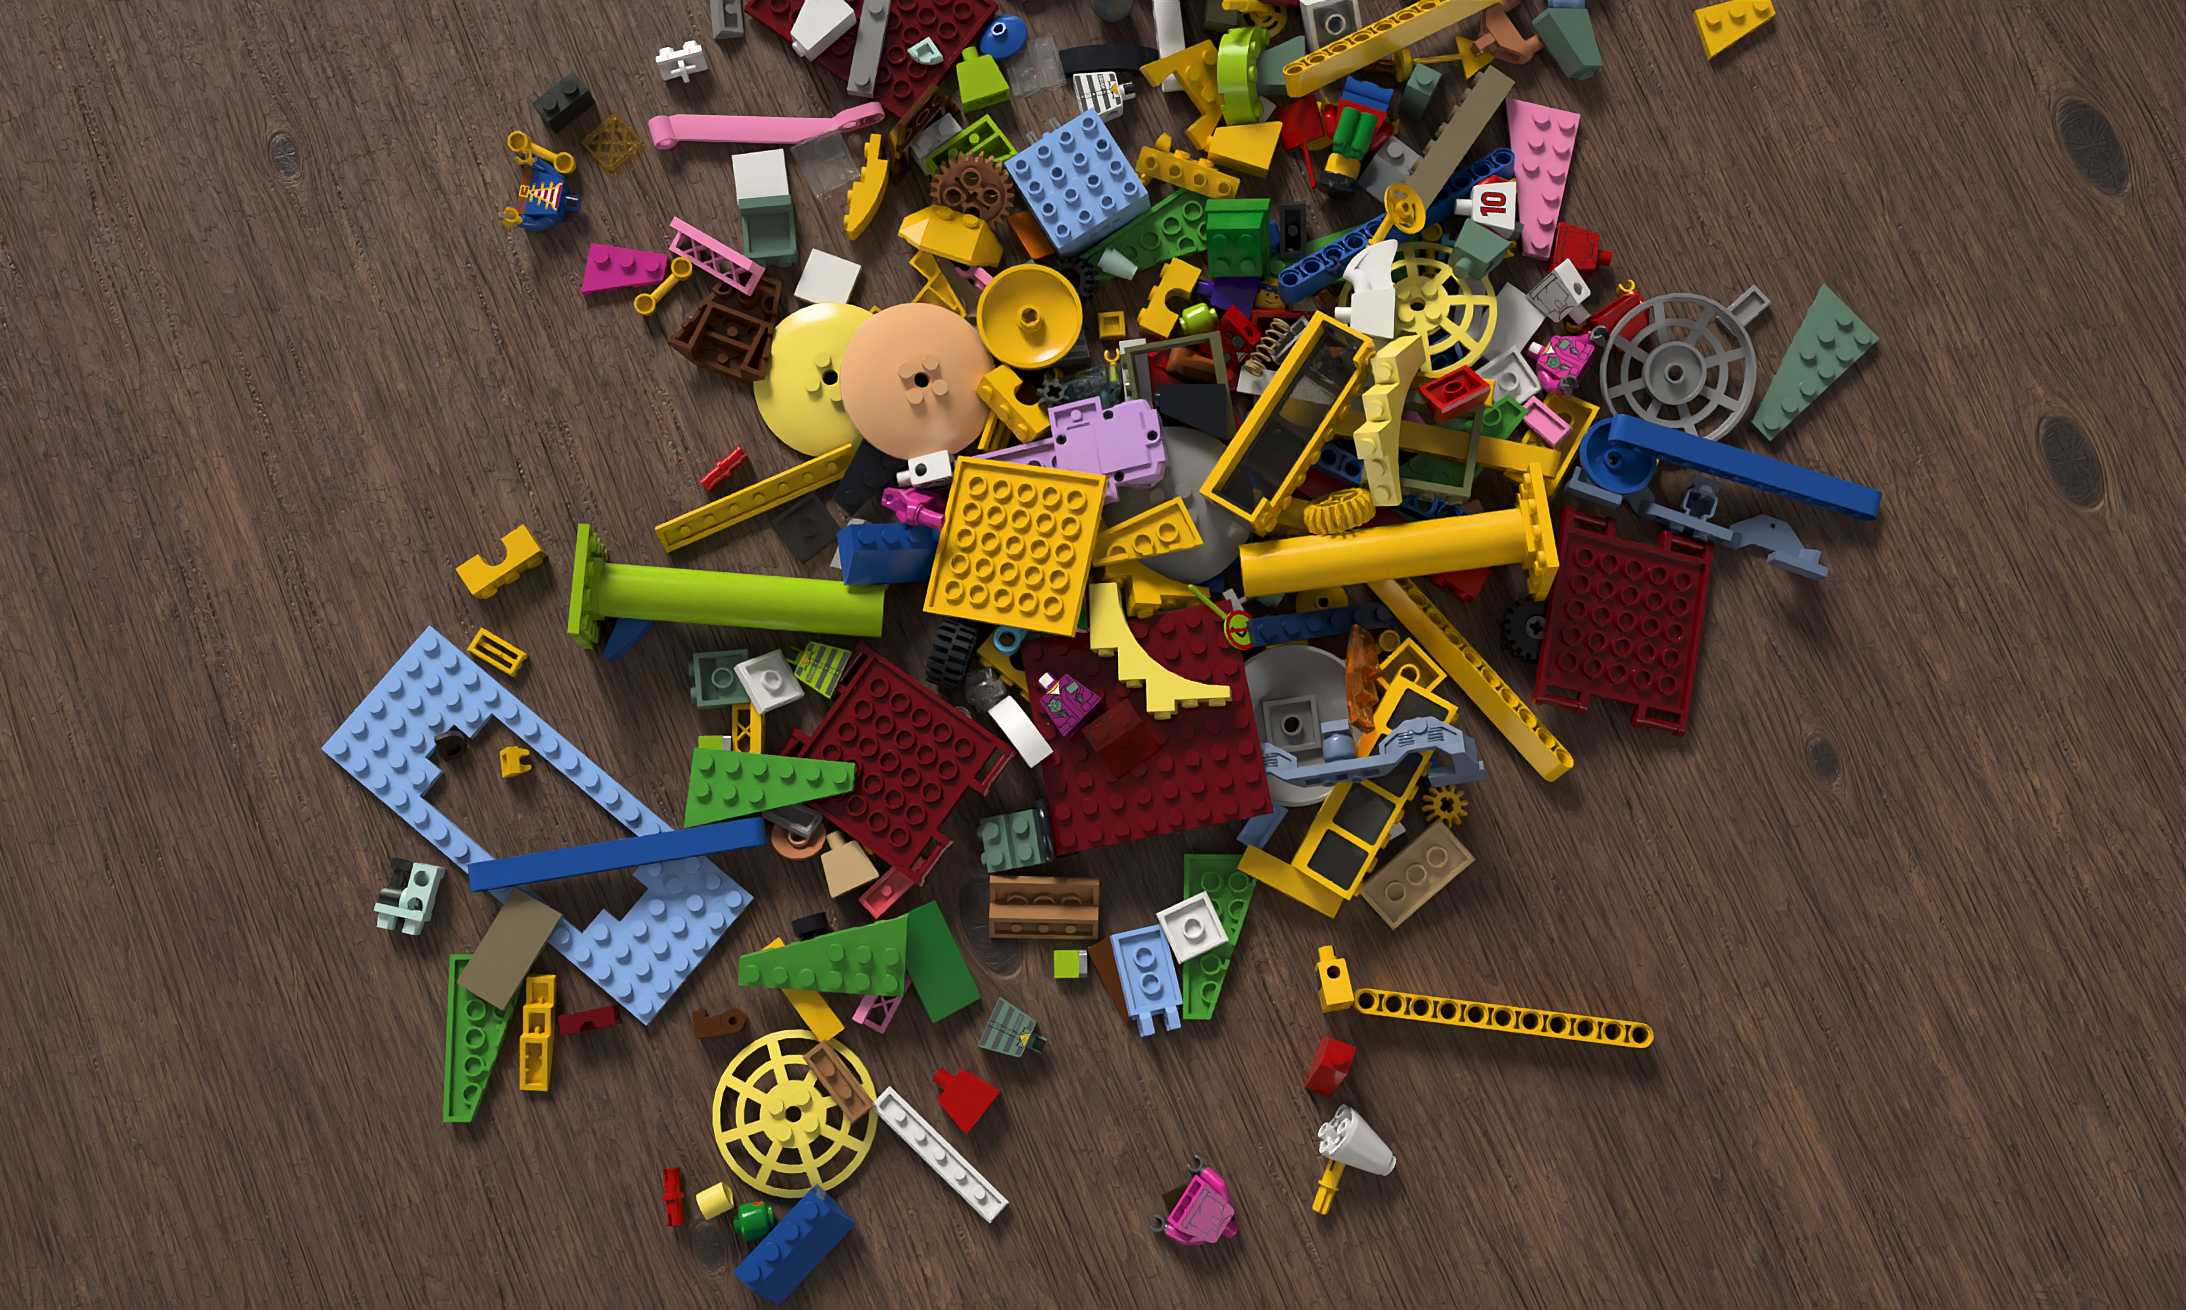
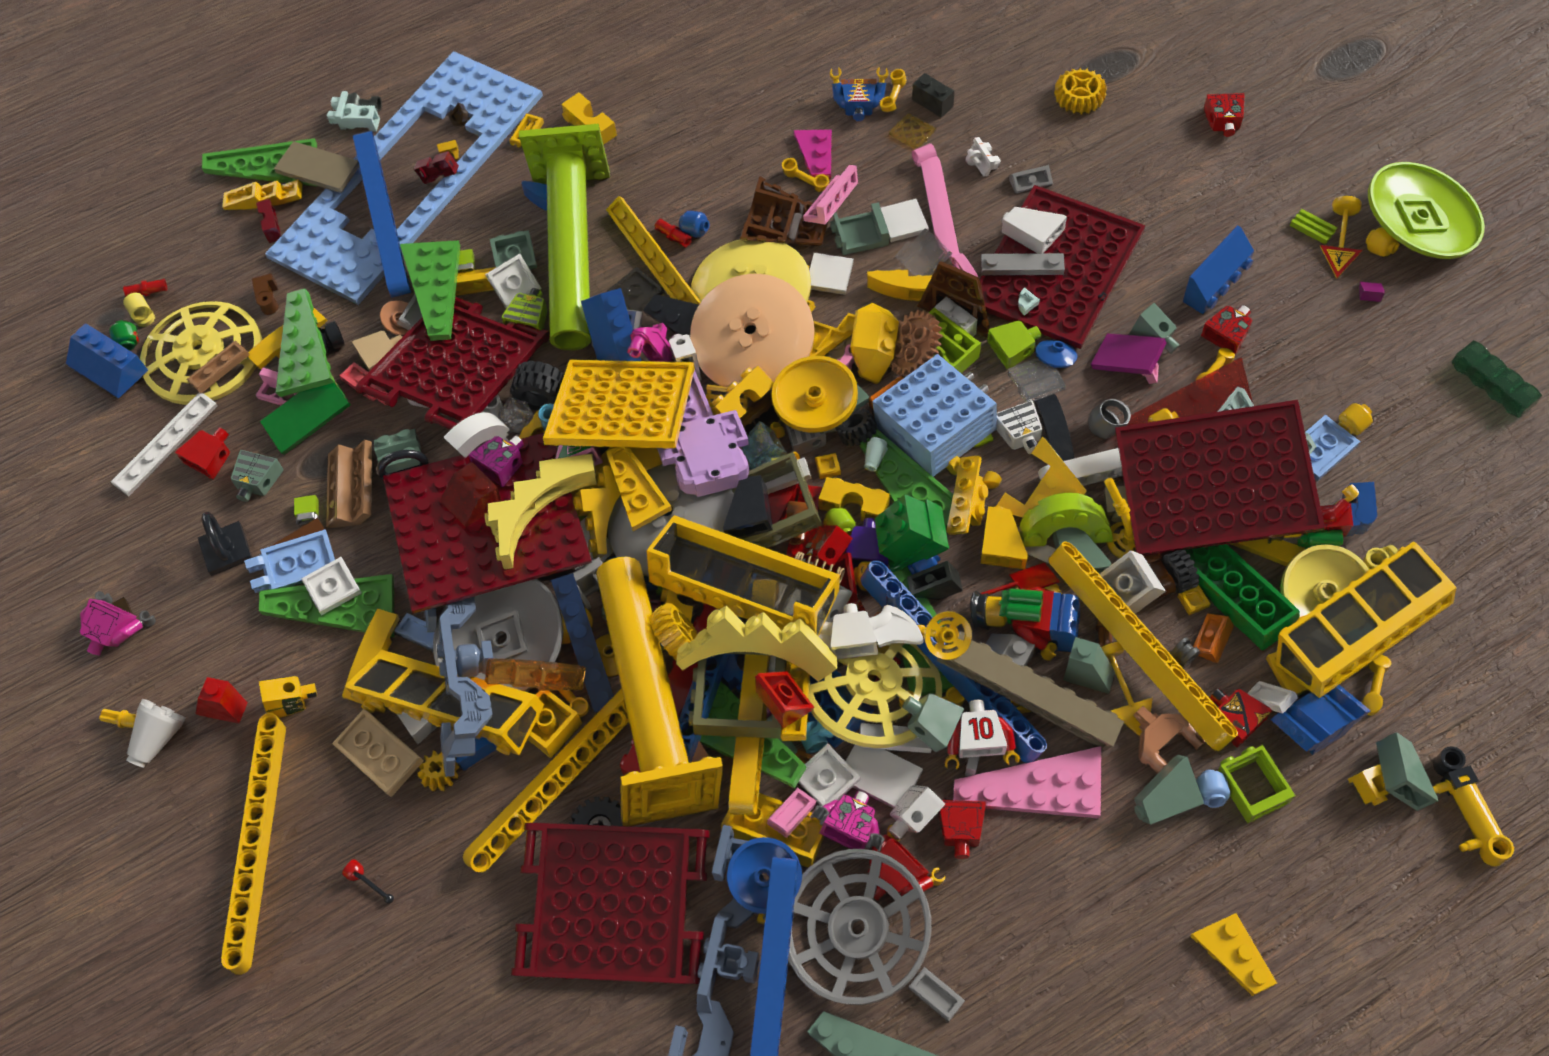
camera: 90 degrees right, 20 degrees down
(548, 785) = (431, 169): none -> dark red piece
(717, 439) = (694, 223): none -> blue head
(1053, 388) = (747, 414): dark grey gear -> none
(1108, 1068) = (223, 546): none -> black tile
(1234, 625) = (568, 563): lime piece -> none
(1550, 903) = (354, 871): none -> hinge

